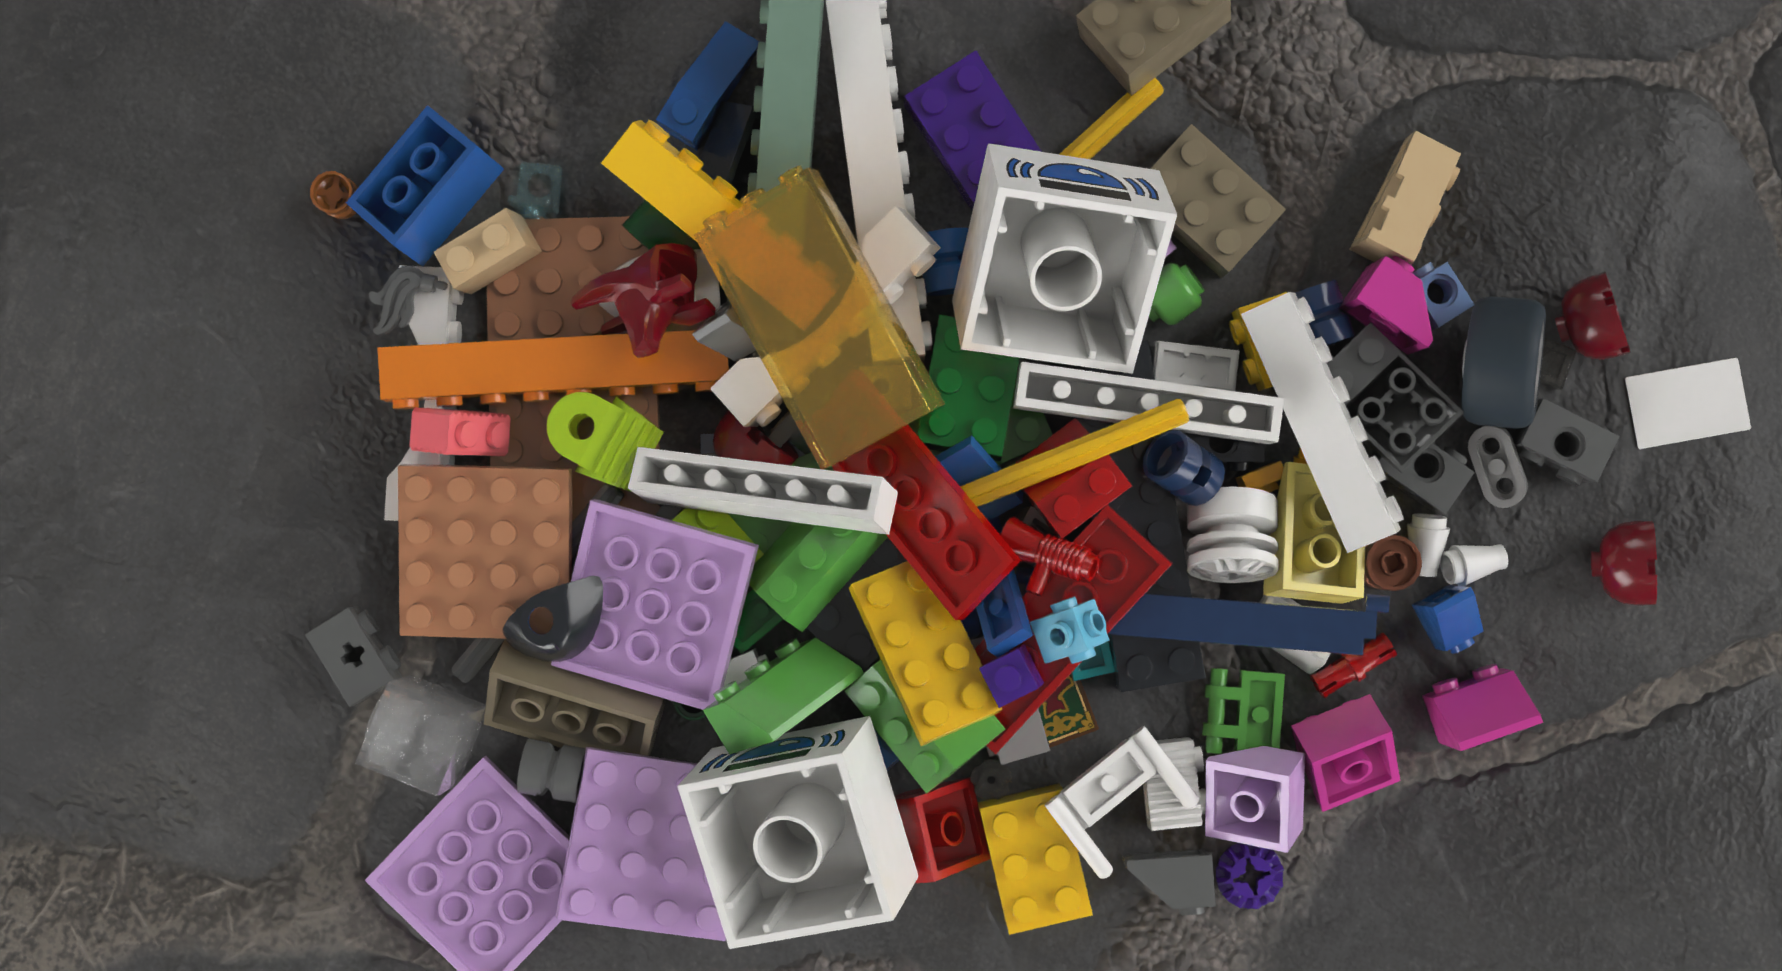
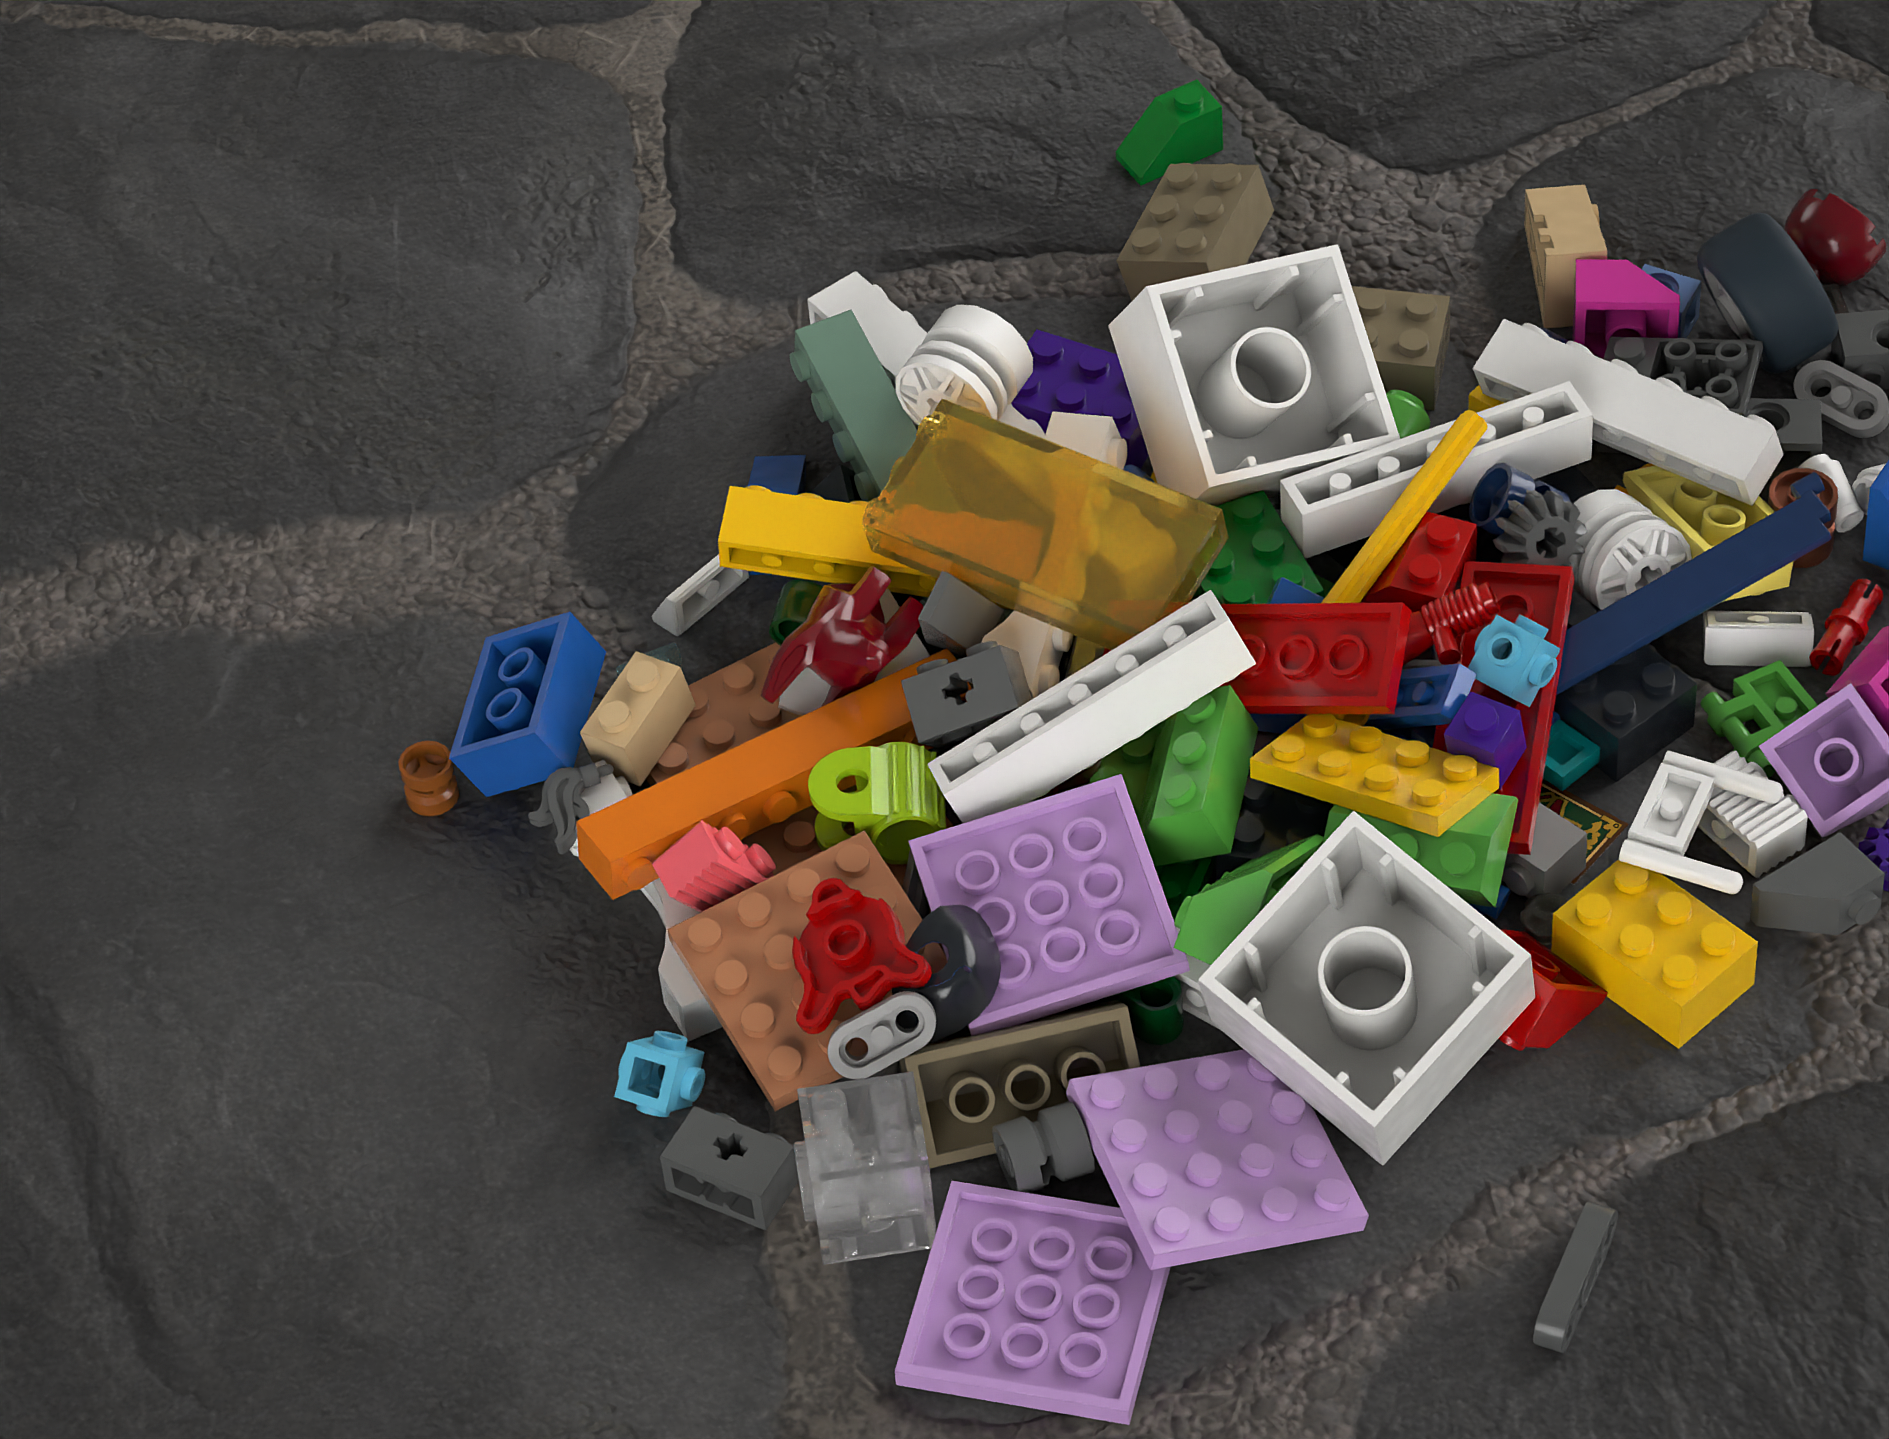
camera: 25 degrees left, 40 degrees down
(345, 559) = (660, 1074): none -> medium azure brick
(481, 650) = (883, 1035): none -> light grey plate
(495, 578) = (850, 952): none -> red tile
(606, 131) = (698, 596): none -> white slope
(697, 408) = (935, 693): none -> dark grey brick
(860, 118) = (967, 360): none -> white wheel
(1173, 514) = (1540, 531): none -> dark grey gear

